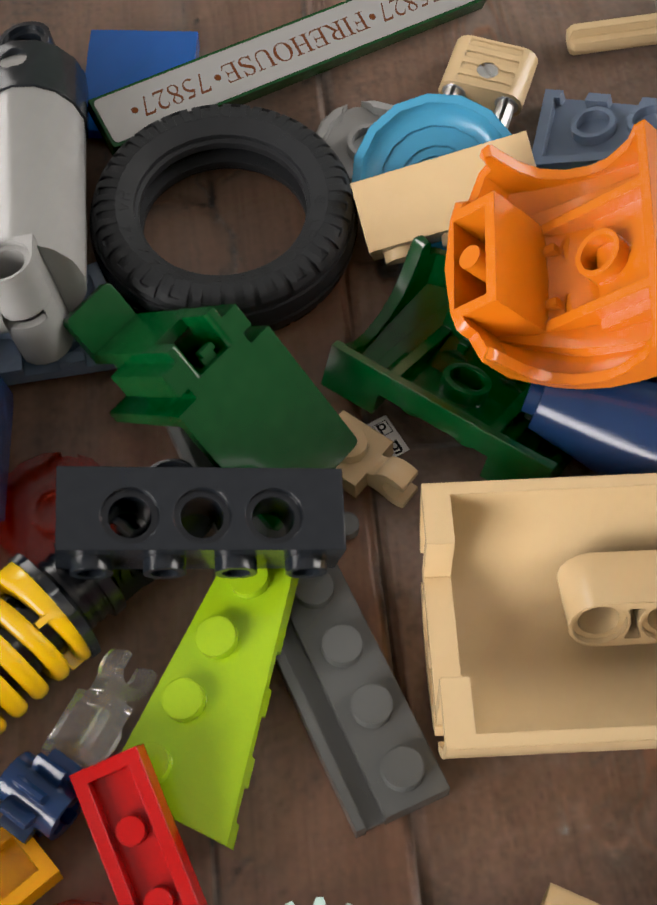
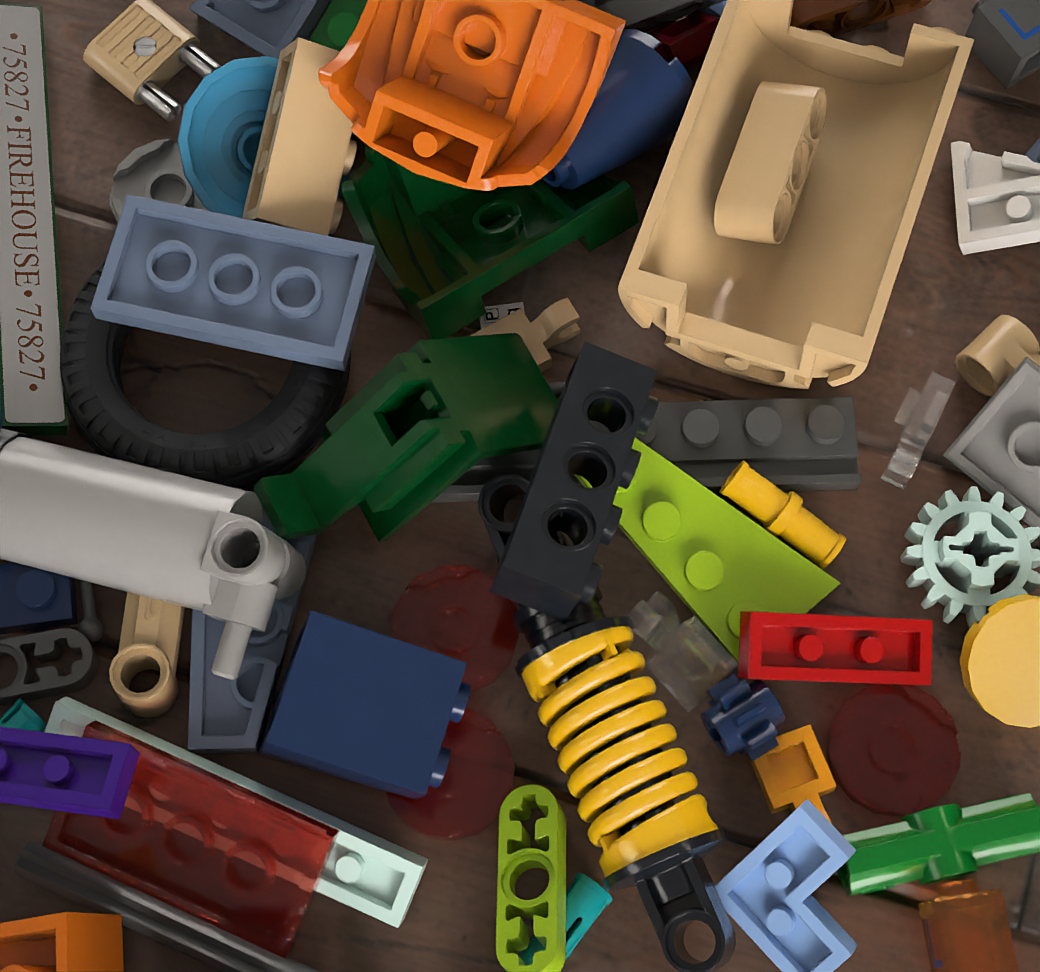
camera: 70 degrees left, 10 degrees up
(280, 194) = (234, 282): none -> sand blue plate
(281, 760) = (783, 515): none -> yellow pin
(456, 867) = (919, 416): none -> clear plate

